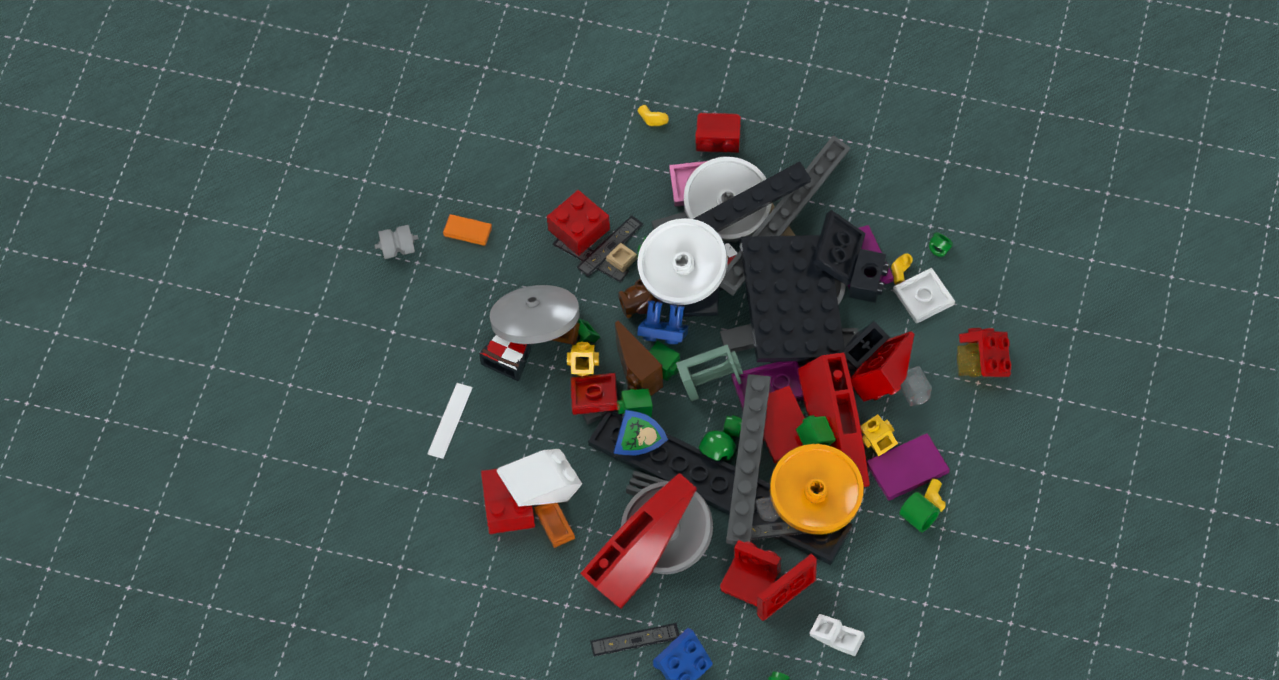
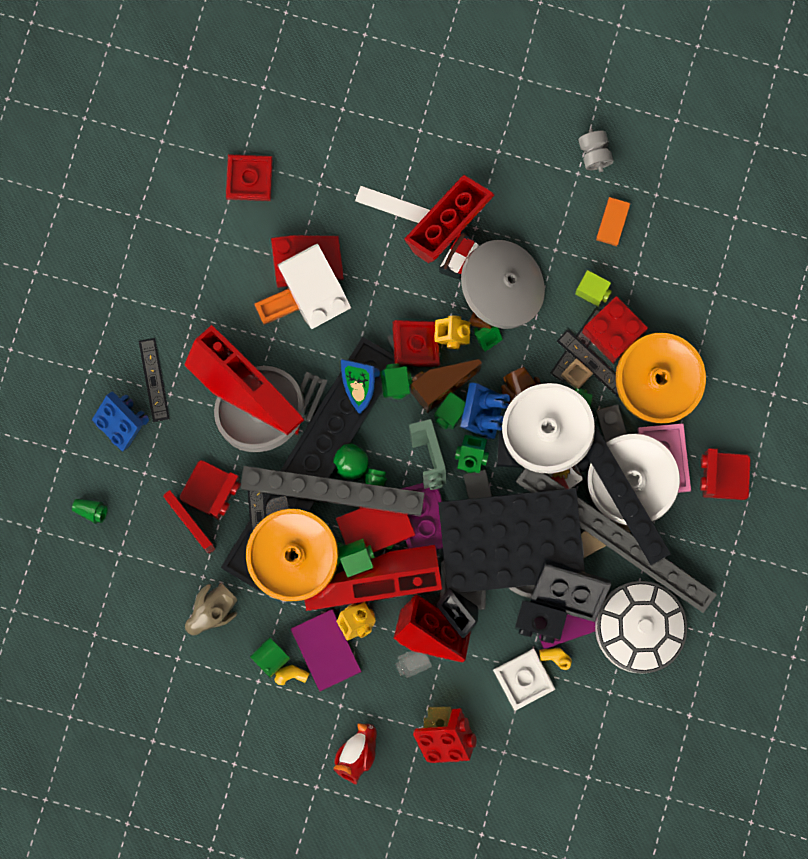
camera: 85 degrees right, 20 degrees up
(417, 556) = (249, 177): none -> red tile
(470, 360) = (447, 218): none -> red slope
(536, 242) = (593, 288): none -> lime brick
(626, 182) = (680, 374): none -> light orange dish
(652, 118) = (744, 409): yellow arm -> none
(705, 337) = (472, 454): none -> green brick
(837, 636) = (146, 570): white slope -> none
(868, 196) = (641, 627): none -> white dish
(874, 567) = (211, 609): none -> dark tan animal
(941, 242) = (583, 700): green tile -> none
(1009, 430) = (357, 754): none -> red animal

